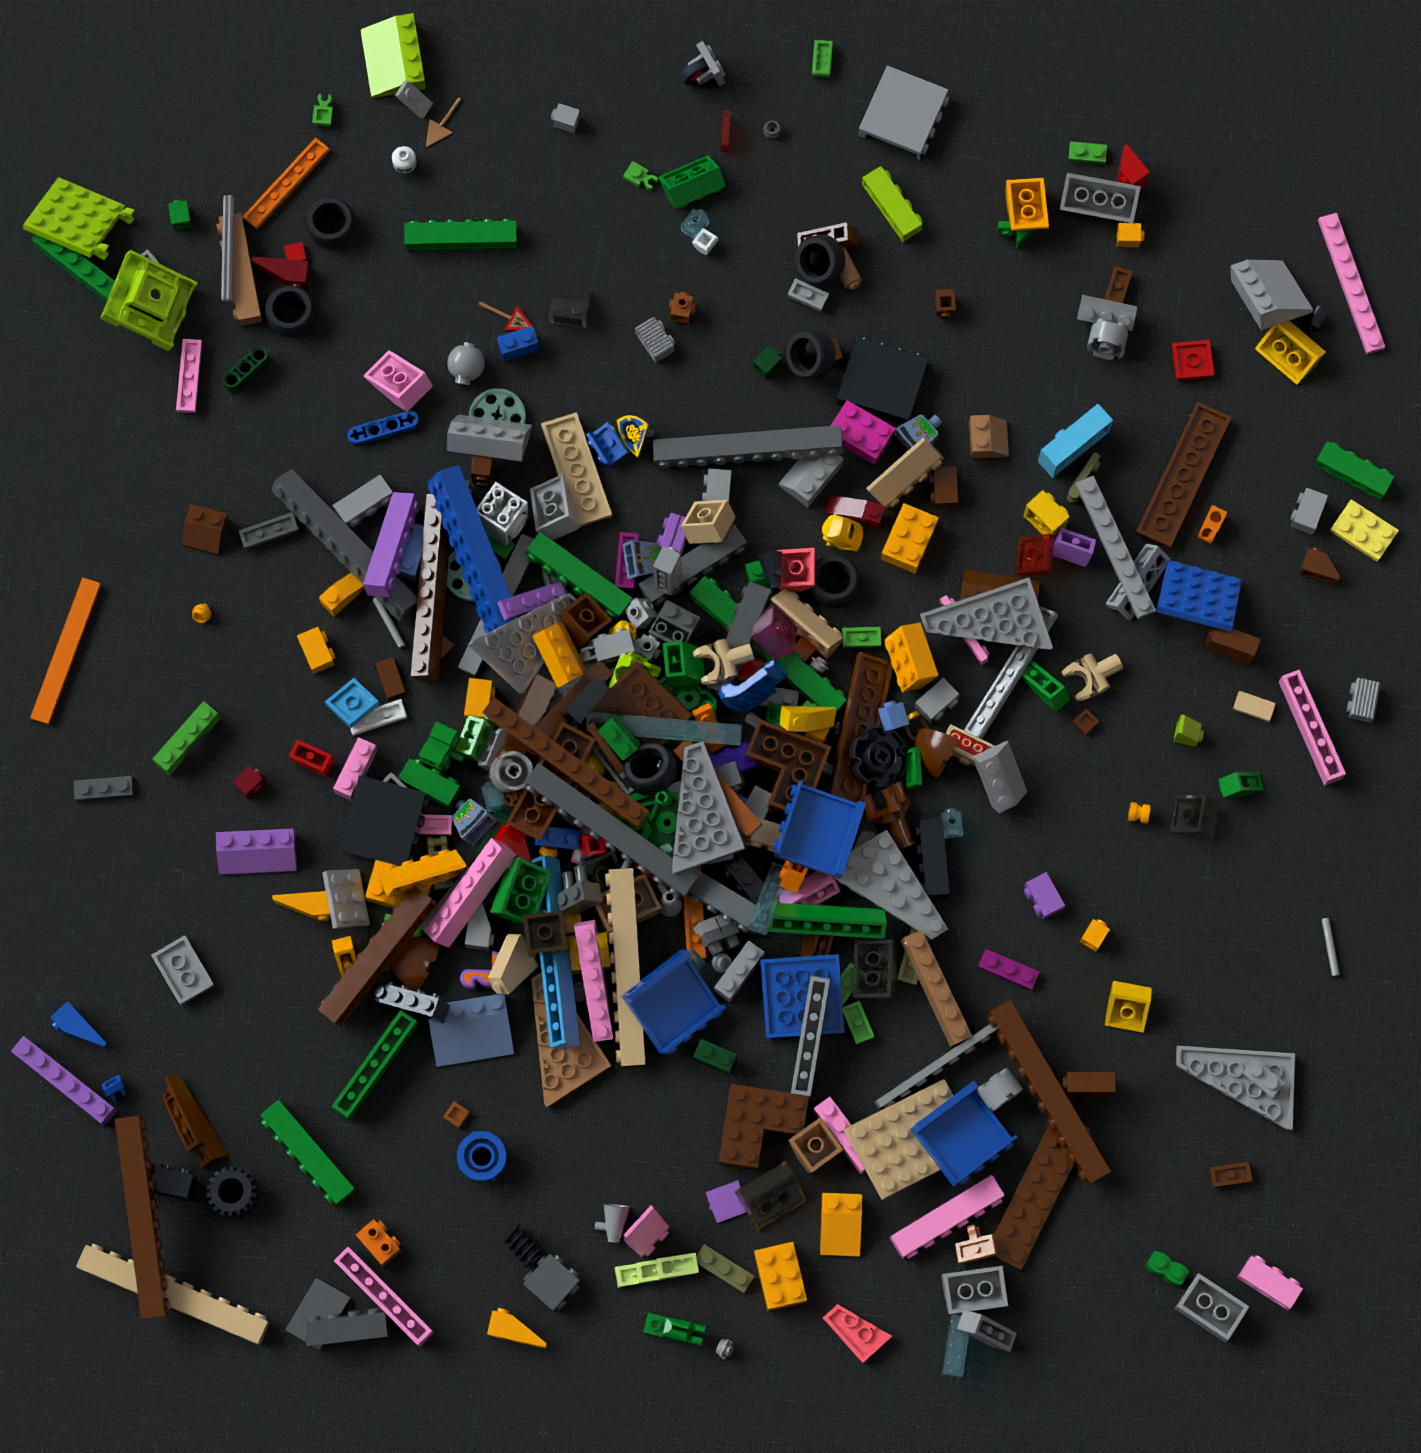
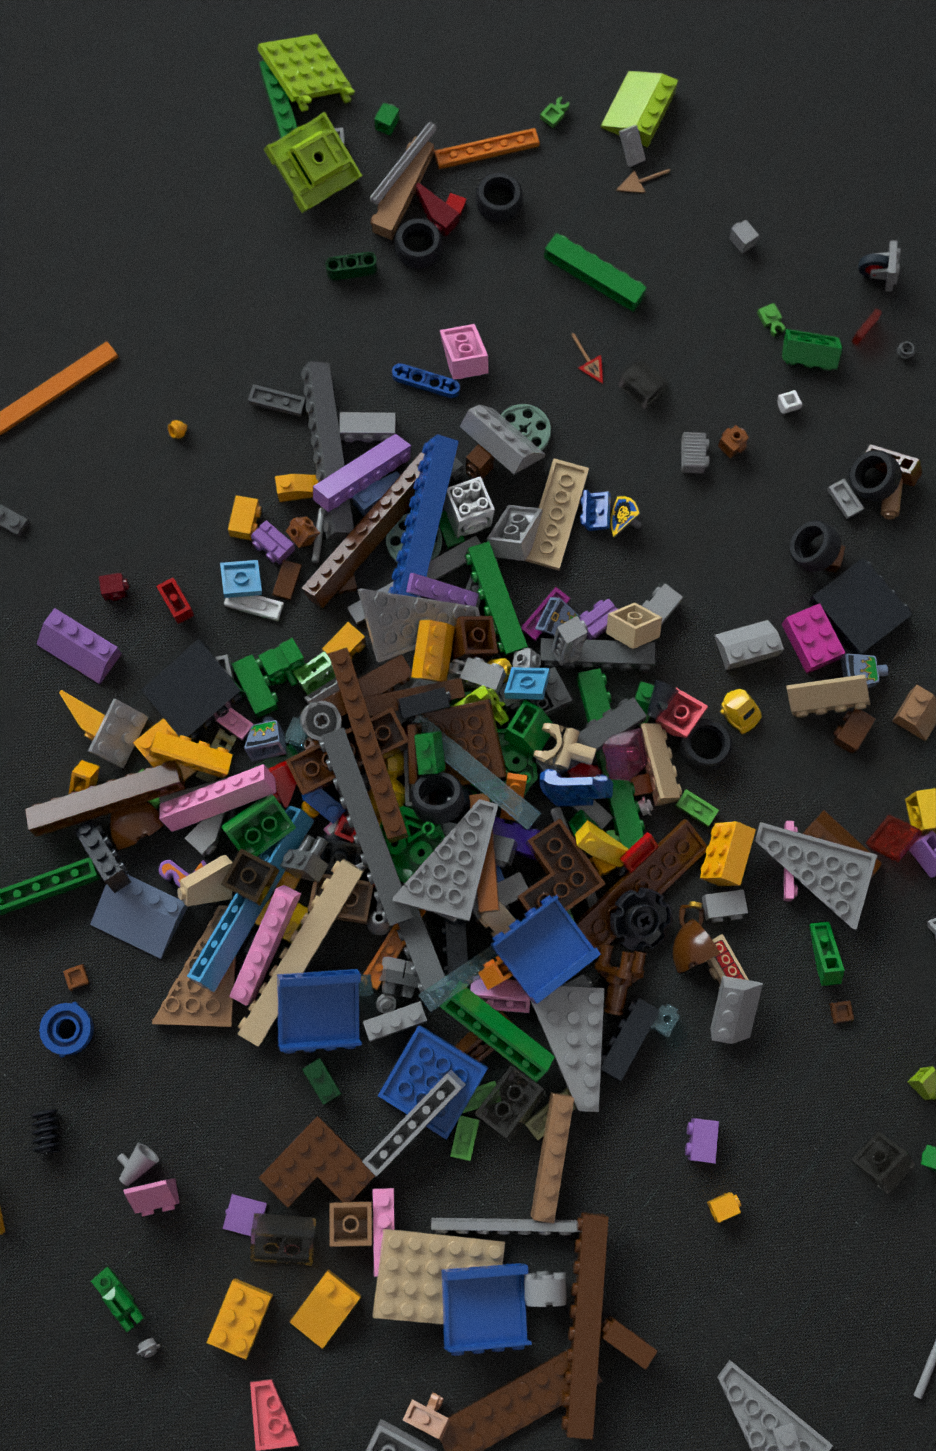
camera: 30 degrees right, 0 degrees up
(174, 751) = (71, 522): bright green arch -> none
(189, 376) = (304, 242): bright pink plate -> none
(204, 529) = (228, 366): reddish brown slope -> none
(355, 654) = (272, 542): none -> medium lavender brick
(356, 765) = (208, 630): bright pink brick -> none
(374, 628) = (302, 531): none -> dark orange brick
(404, 159) = (591, 186): white head -> none
(466, 363) = (527, 372): light grey brick -> none
(518, 343) = (580, 383): blue brick -> none
(552, 1282) = (45, 1181): dark grey brick -> none
(655, 628) = (527, 683): none -> dark azure plate
(656, 1270) = (141, 1234): yellowish green slope -> none
(692, 229) = (785, 384): clear light blue brick -> none
(724, 1269) = (199, 1274): olive plate -> none
(748, 446) = (711, 587): dark grey brick -> none
(767, 362) = (774, 530): dark green brick -> none
(840, 704) = (639, 852): none -> red tile
(861, 511) = (768, 702): dark red slope -> none
(893, 715) = (678, 892): medium blue brick -> none
(909, 538) = (794, 752): light orange brick -> none
(913, 769) = (664, 950): green tile -> none
(947, 1216) = (421, 1370): bright pink brick -> none
(1005, 683) = (792, 931): light grey tile -> none
(1008, 969) = (627, 1183): magenta plate -> none
(1093, 673) = (876, 975): tan connector -> none
(1128, 1006) = (711, 1293): yellow slope -> none
(1137, 812) = (834, 1123): light orange wheel -> none

